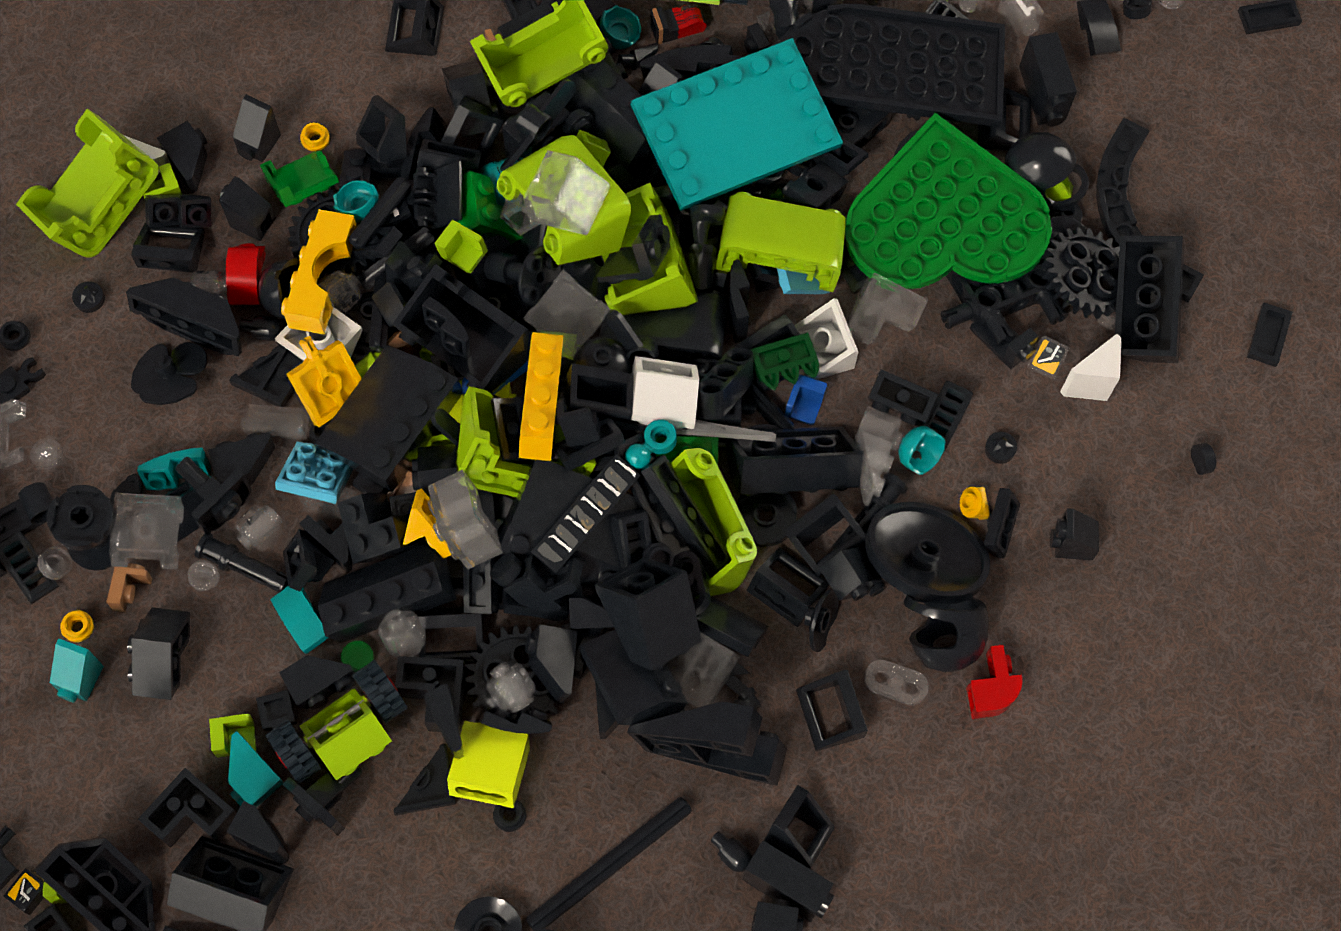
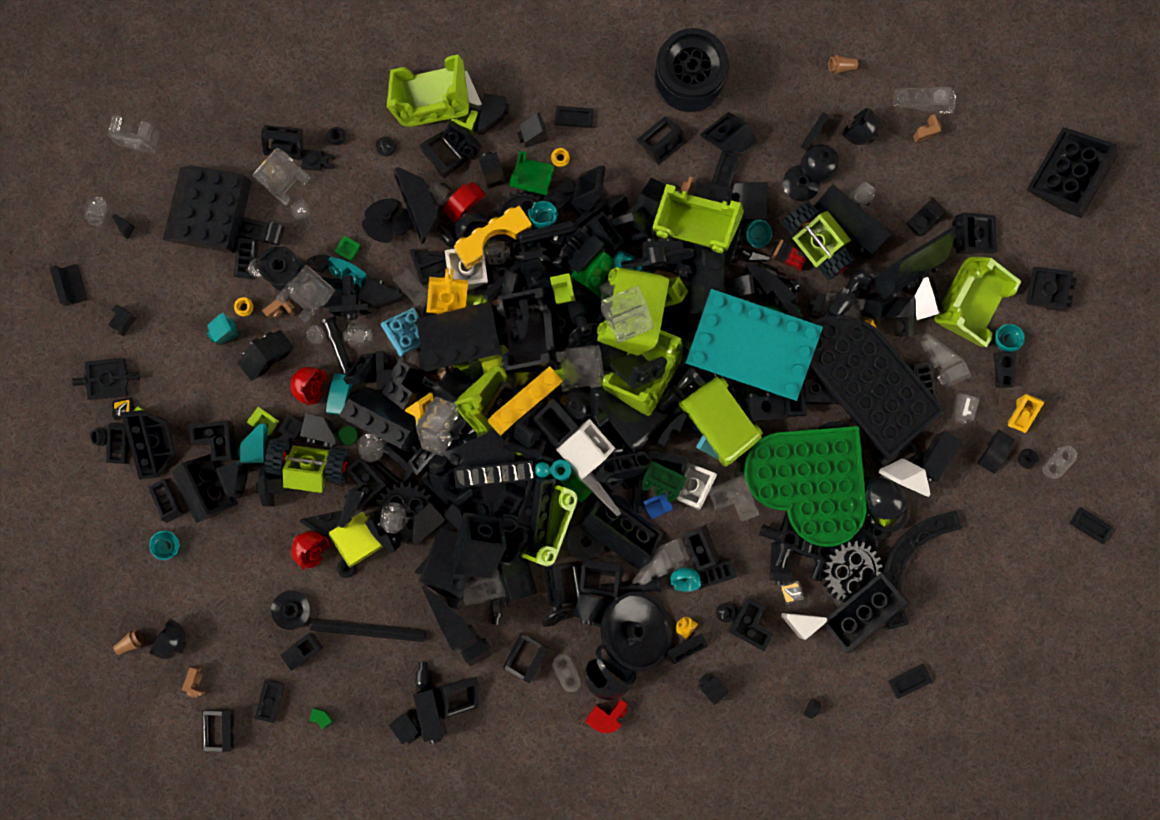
camera: 45 degrees right, 15 degrees up
(149, 444) = (347, 248): none -> green plate
(245, 637) = (307, 385): none -> red cylinder
(288, 84) = (574, 117): none -> black tile
(437, 831) = (305, 548): none -> red cylinder
(1043, 436) = (745, 625): none -> black brick
(1045, 114) = (907, 475): none -> white slope

